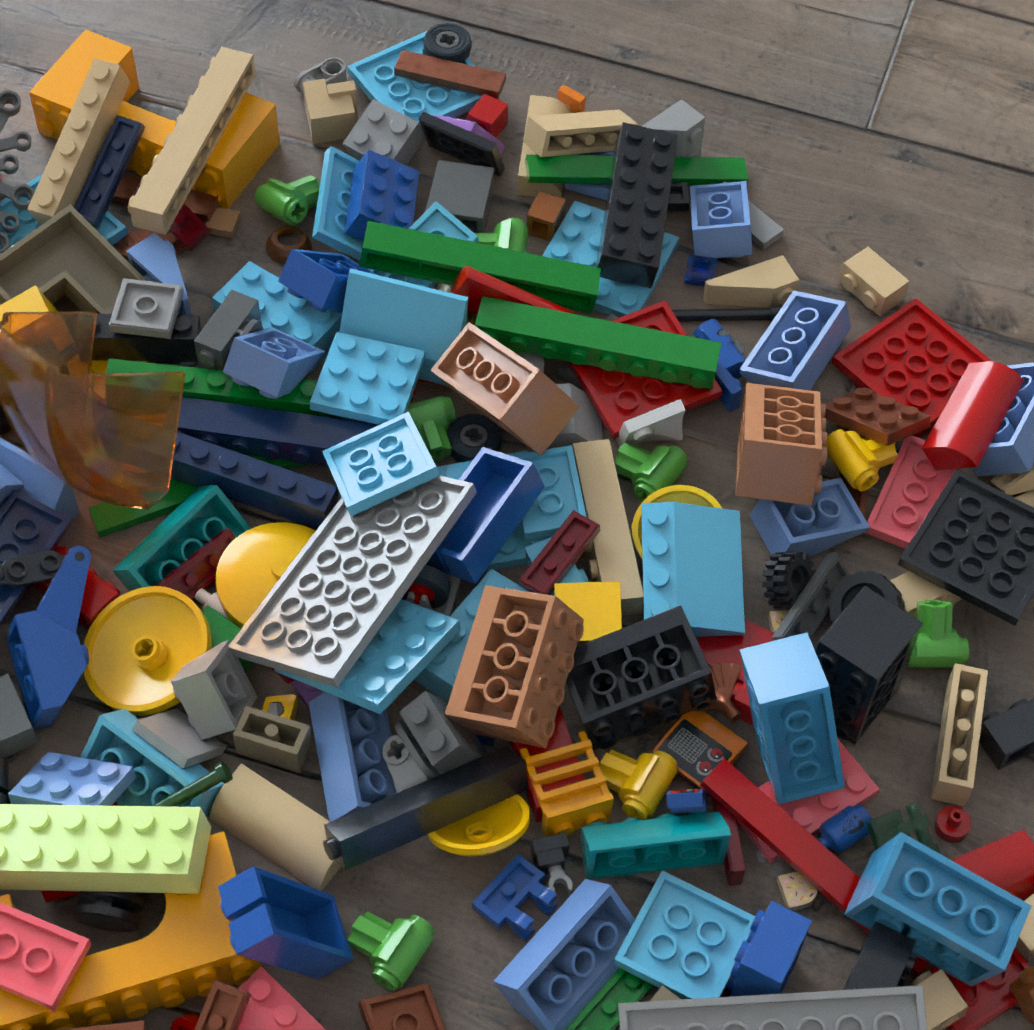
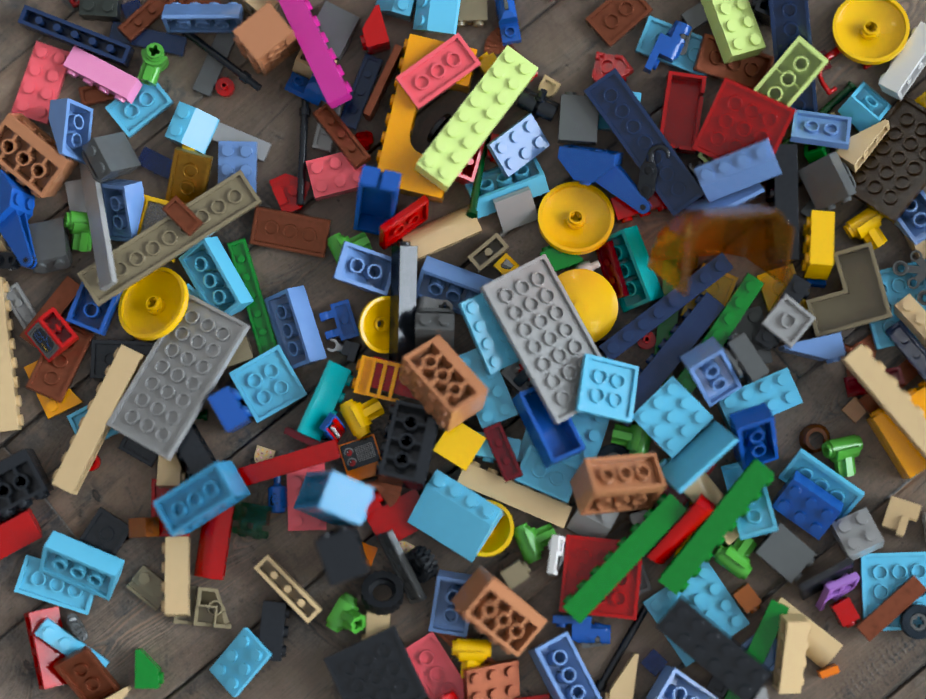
camera: 125 degrees right, 30 degrees up
(214, 691) = (527, 237): light grey slope -> none
(306, 875) = (403, 222): none -> red tile
(408, 888) = (364, 269): none -> medium blue slope
(712, 462) = (515, 573): none -> dark tan brick
(952, 824) = (254, 550): red tile -> none

